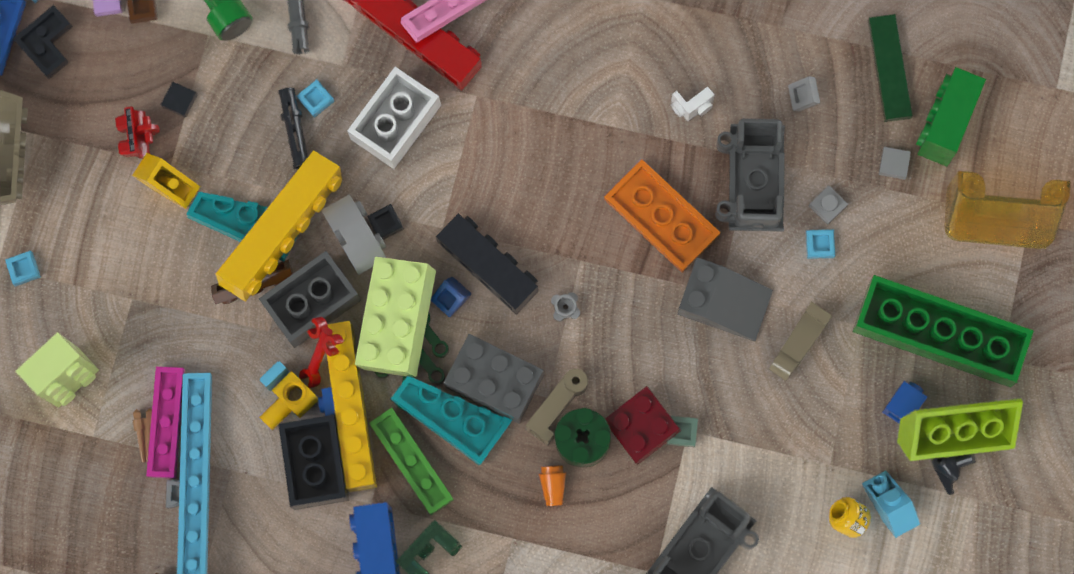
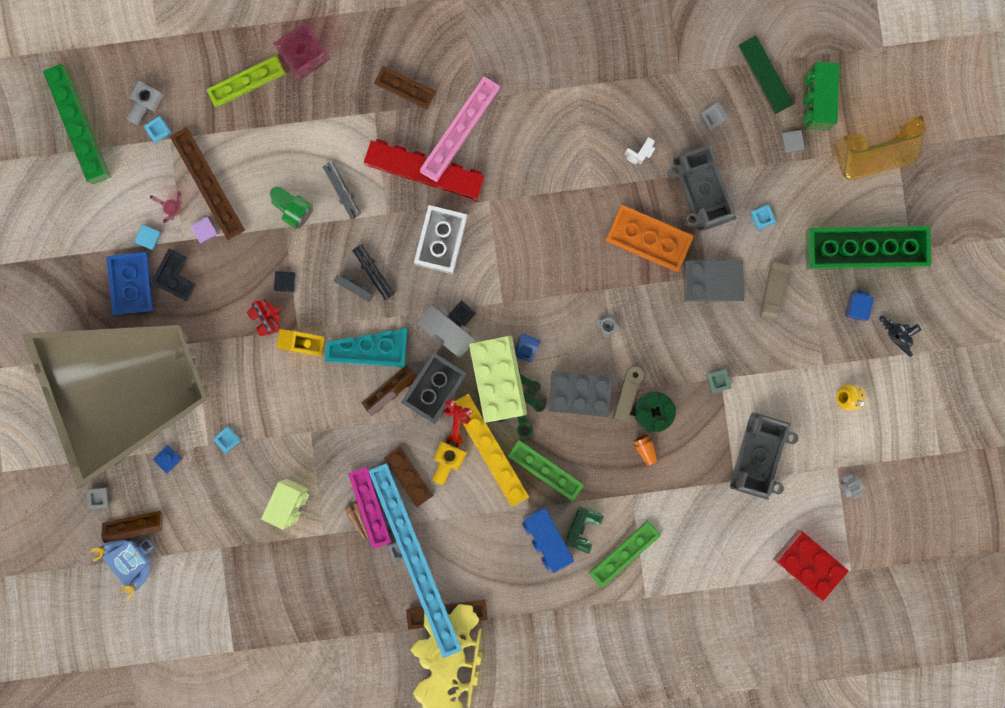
camera: 25 degrees left, 10 degrees up
(231, 402) = (408, 476): none -> reddish brown plate
(255, 129) = (361, 291): none -> dark grey plate
(274, 375) = (430, 448): medium azure tile -> none
(279, 226) = (393, 346): yellow brick -> none
(313, 462) = (482, 497): black brick -> none
(315, 98) = (378, 245): medium azure tile -> none
(326, 402) = (474, 453): blue plate -> none
(458, 422) = (565, 432): teal wing -> none
(487, 263) = (544, 317): black brick -> none
(642, 425) = (690, 387): dark red plate -> none
(828, 205) = (758, 188): light grey plate -> none
(891, 504) = (874, 377): medium azure slope -> none
(960, 429) = (905, 313): lime slope -> none

